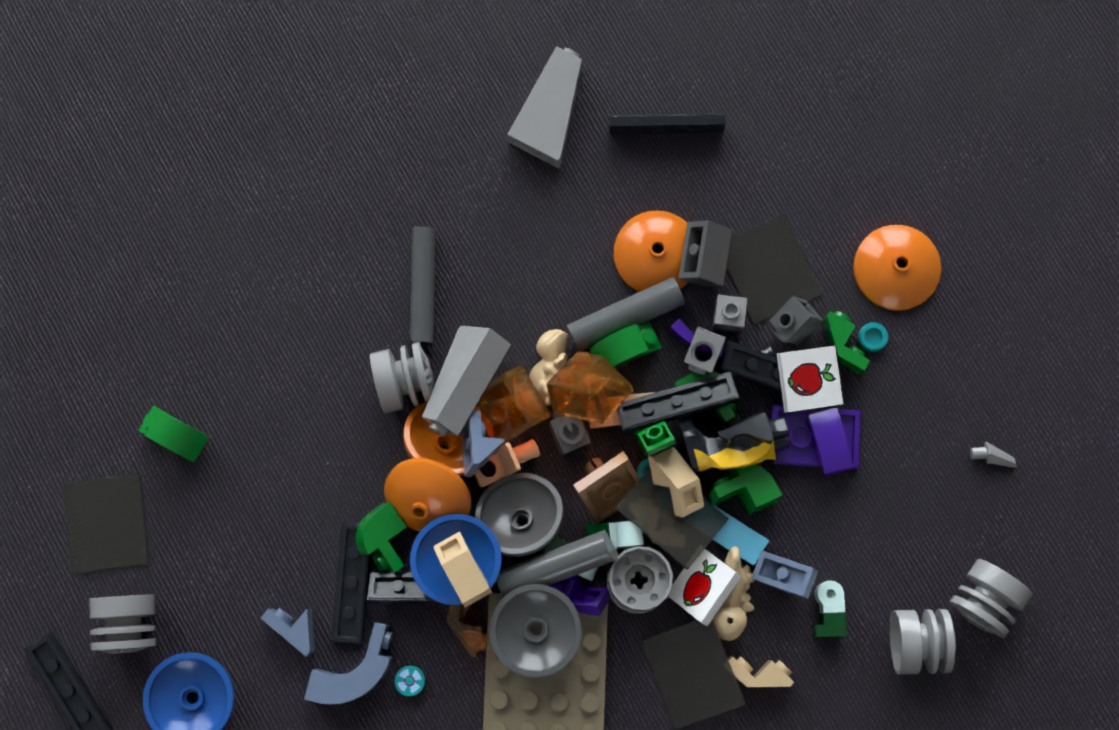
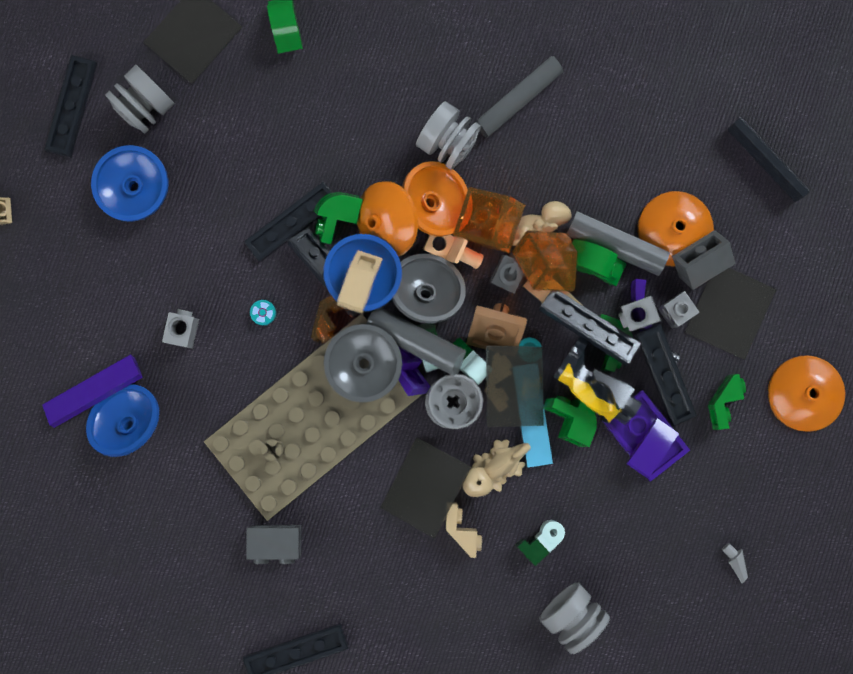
camera: 45 degrees right, 5 degrees up
(299, 635) = (230, 217): sand blue slope -> none
(335, 688) = (218, 271): sand blue arch -> none
(463, 378) = (483, 174): light grey slope -> none
(475, 446) = (446, 223): sand blue slope -> none
(547, 113) = (707, 74): light grey slope -> none
(654, 438) = (553, 332): green slope -> none
(672, 471) = (542, 364): tan slope -> none
(704, 587) = (485, 447): white tile -> none
(784, 574) = (539, 492): sand blue slope -> none
(795, 321) = (711, 357): dark grey brick -> none
(809, 379) = (682, 399): white tile -> none
(872, 337) = (745, 417): teal tile -> none
(990, 598) = (642, 639): light grey wheel -> none

